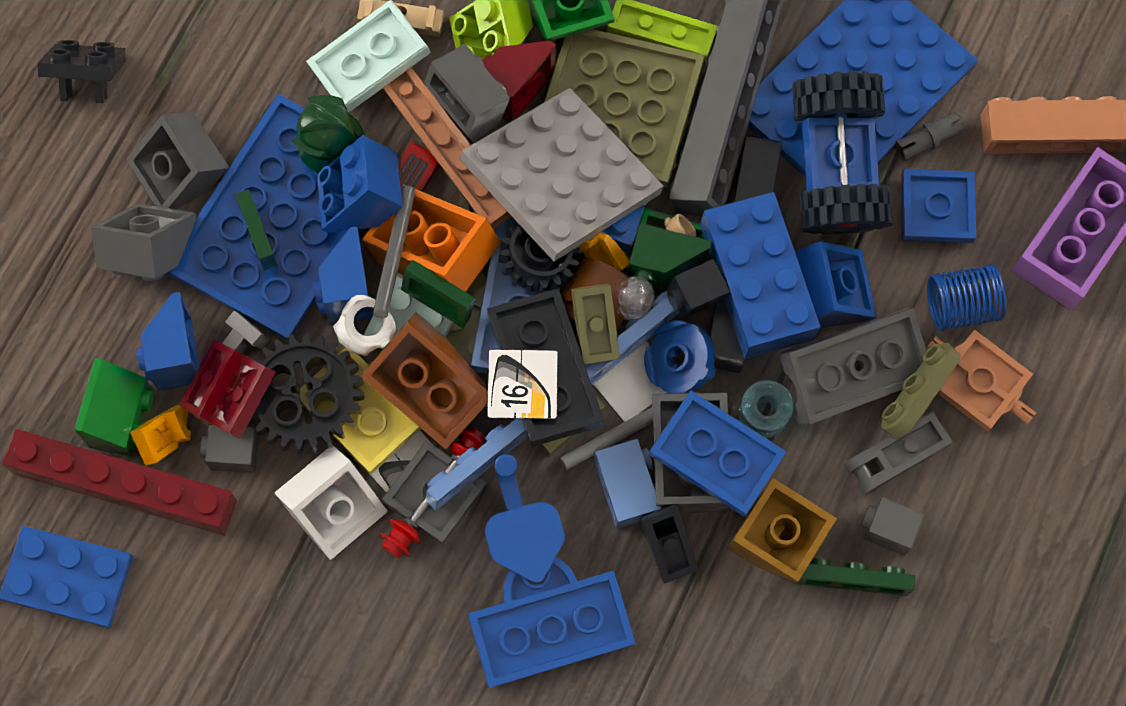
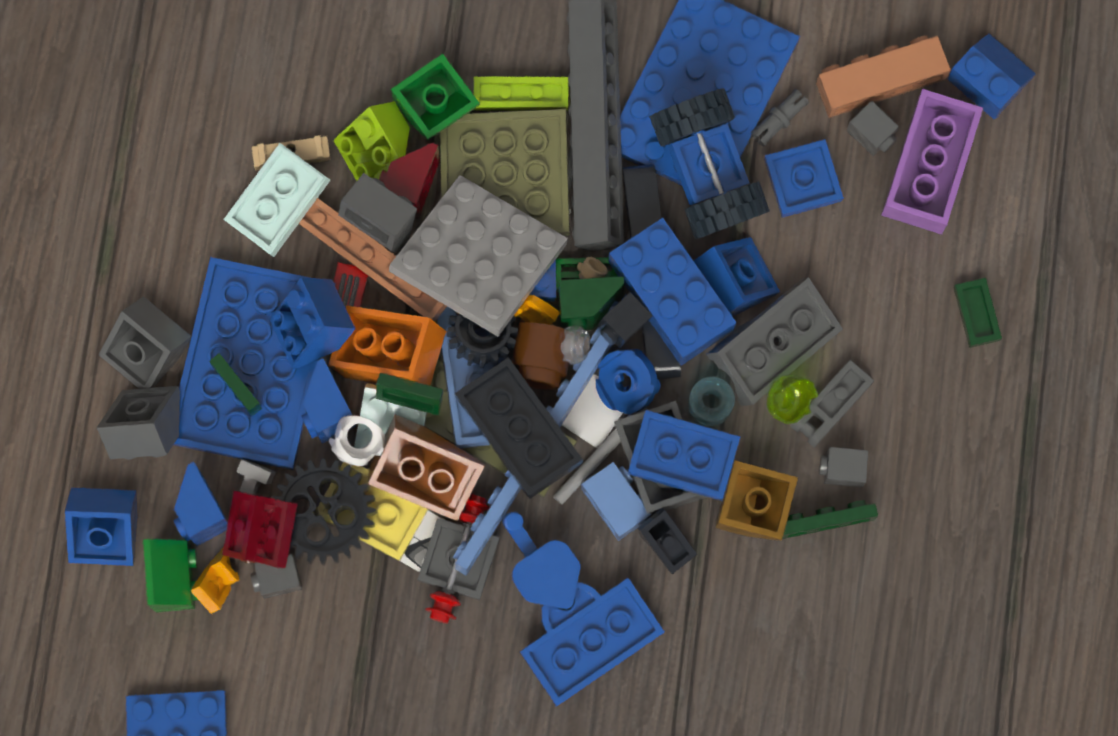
camera: 15 degrees left, 5 degrees up
(61, 335) = (101, 526): none -> blue slope
(73, 61) = (33, 284): black plate -> none
(120, 482) = (194, 634): dark red brick -> none
(325, 131) = (266, 280): dark green helmet -> none
(331, 501) = (375, 594): white slope -> none
(394, 253) = (361, 371): dark grey bar -> none
(522, 384) = (505, 449): sticker -> none
(595, 323) = (549, 378): olive plate -> none
(855, 430) = (790, 398): none -> clear neon green hair
(920, 390) = (834, 345): olive plate -> none
(937, 281) = (850, 249): blue piece -> none
(986, 382) = (882, 319): nougat plate -> none
(1029, 177) = (873, 129): none -> dark grey brick
(1087, 406) = (977, 312): none -> dark green tile

